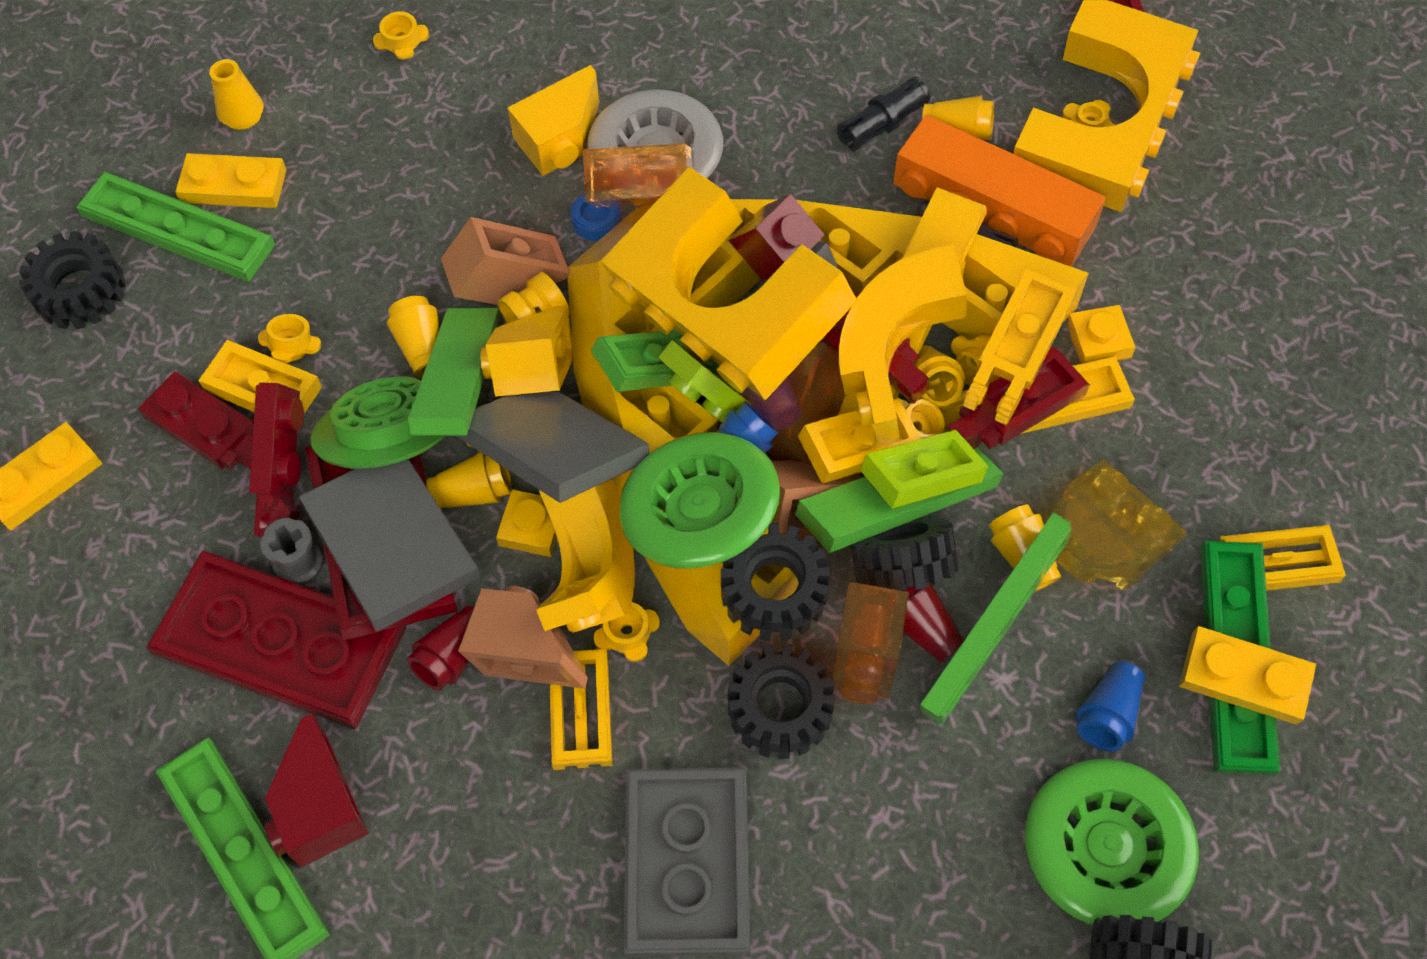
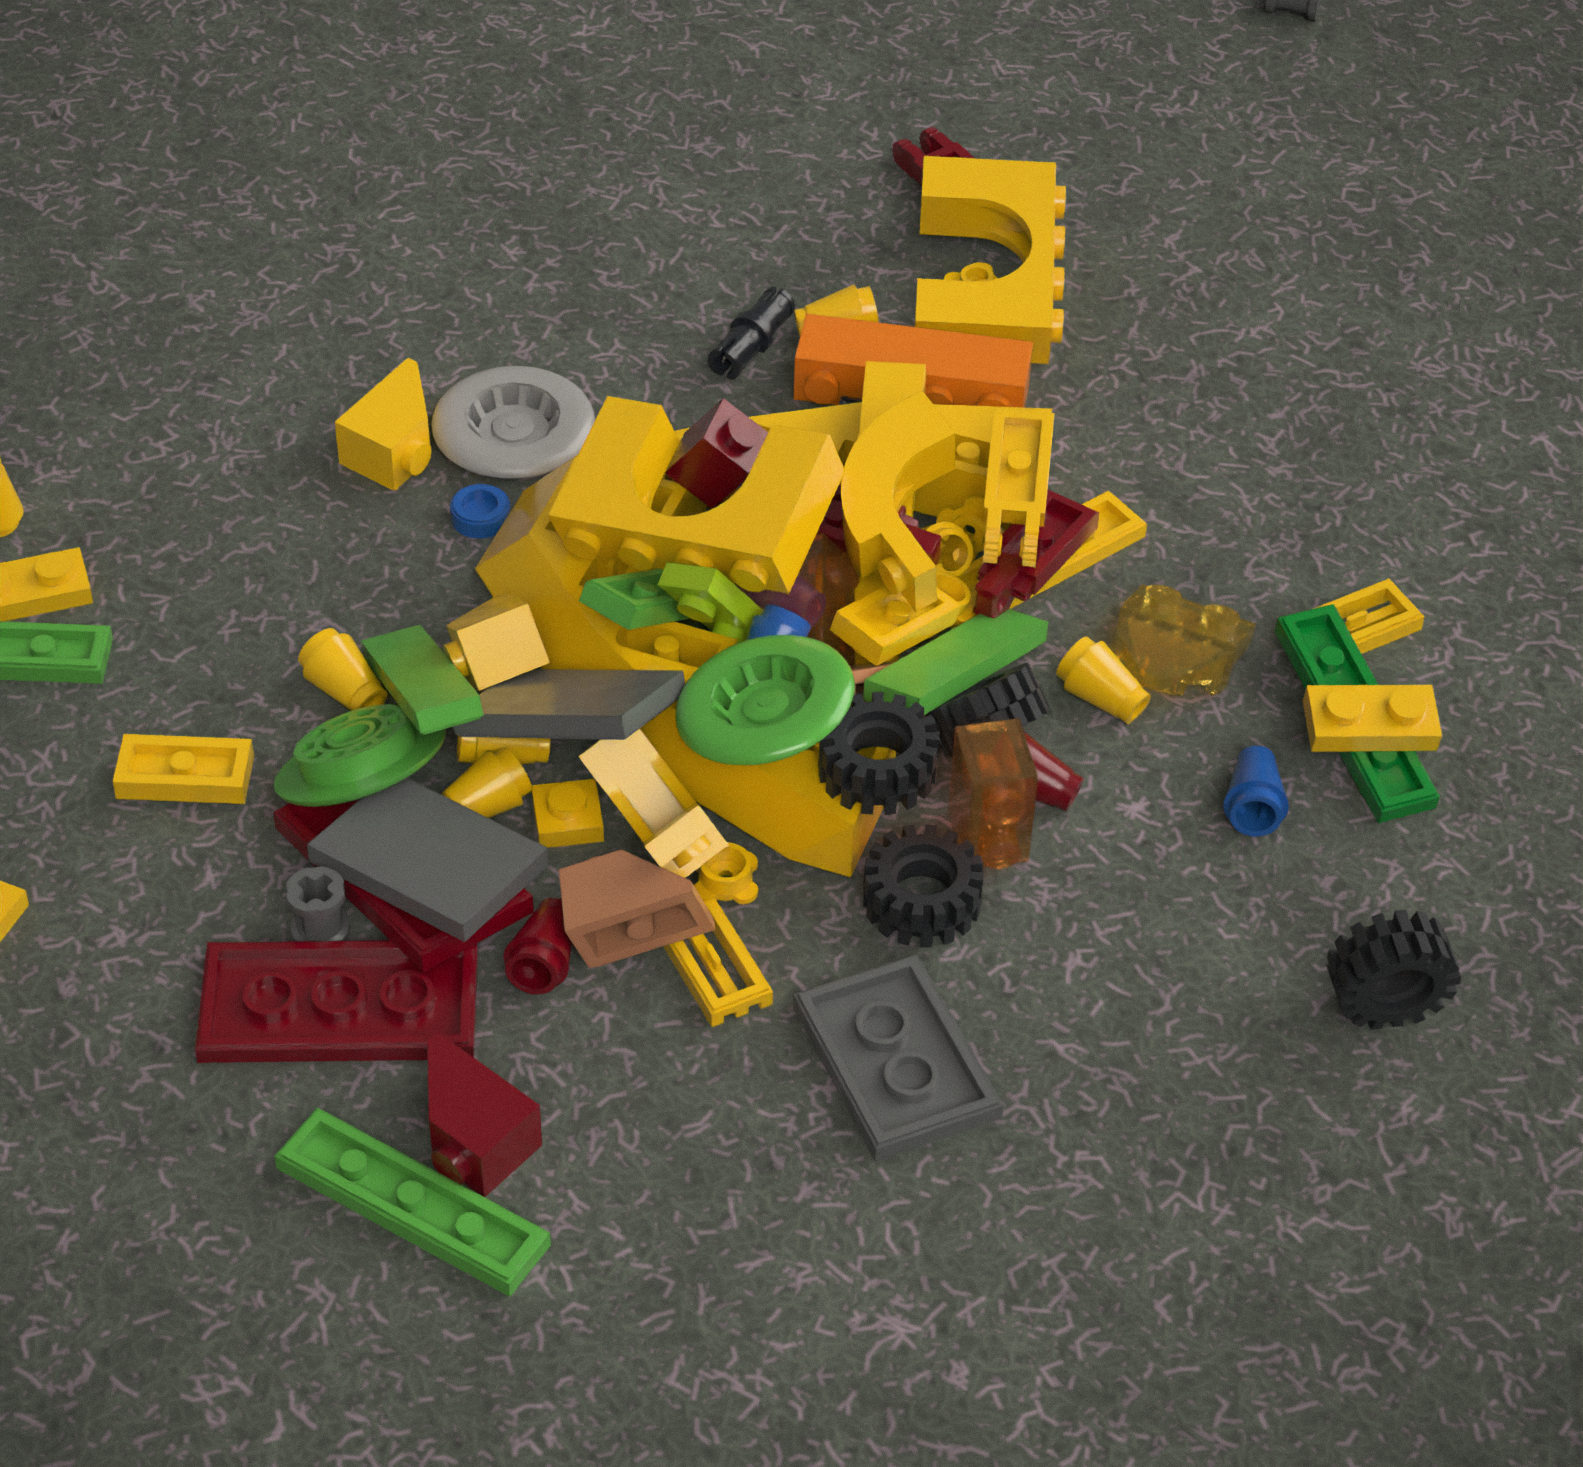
camera: 25 degrees left, 15 degrees down
(200, 422) = (141, 829): dark red hinge -> none
(274, 455) = (256, 830): dark red hinge -> none
(289, 338) = (192, 714): yellow plate -> none
(400, 34) = (150, 391): yellow plate -> none
(499, 258) = (402, 577): nougat slope -> none
(539, 295) = (462, 593): yellow wheel -> none
(633, 173) = (524, 442): clear orange brick -> none
(923, 468) = (973, 623): lime plate -> none
(996, 620) = (1108, 741): bright green tile -> none
(1100, 334) = (1084, 475): yellow plate -> none
(1110, 843) = (1304, 909): bright green wheel -> none

